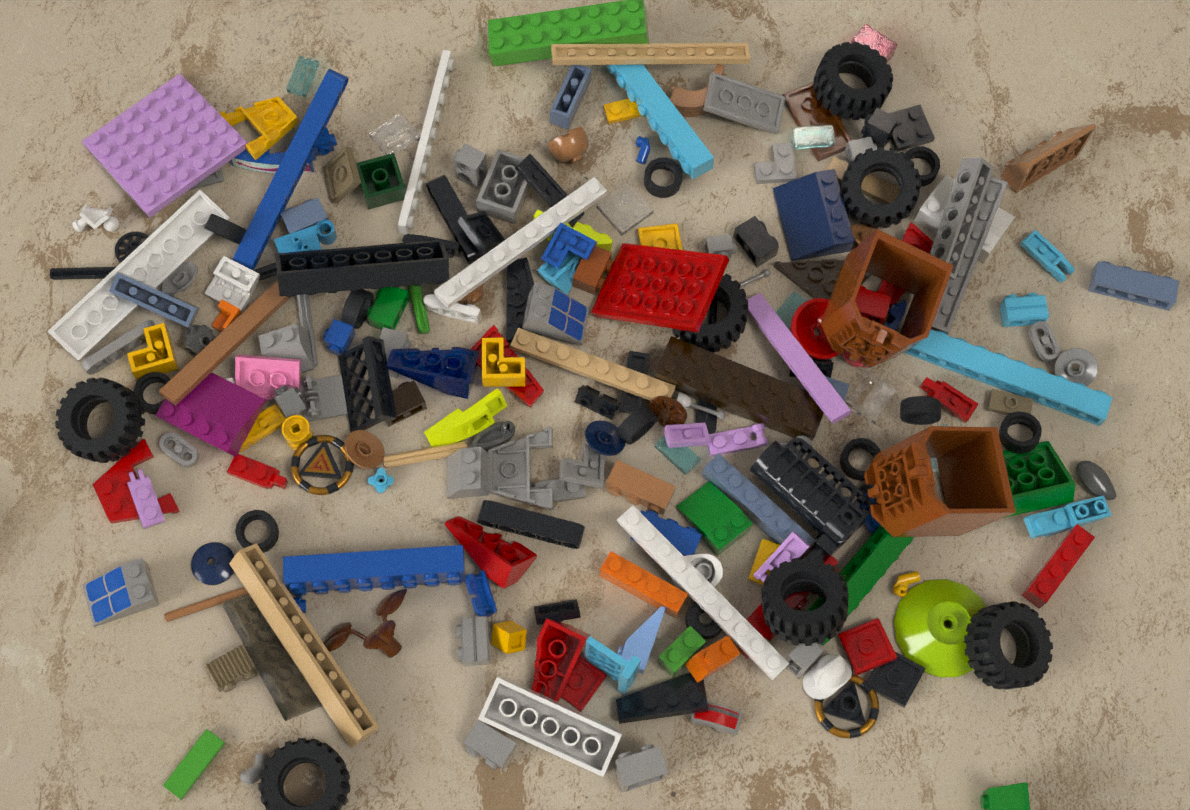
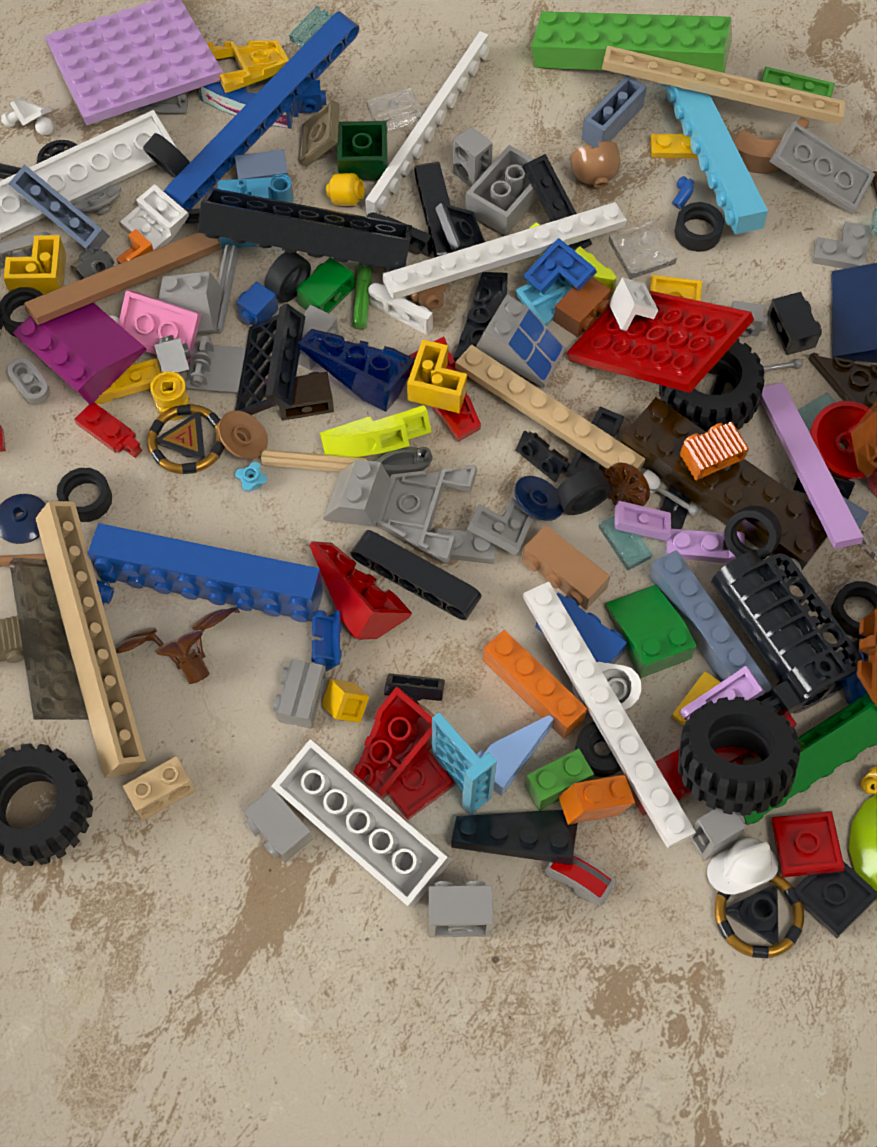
camera: 20 degrees right, 5 degrees down
(377, 218) = (345, 189): none -> yellow head
(394, 743) = (159, 788): none -> tan brick
(630, 260) = (631, 299): none -> white panel
(705, 32) = (797, 82): none -> bright green tile
(725, 370) = (713, 450): none -> orange brick
(772, 411) = (763, 514): none -> black tyre

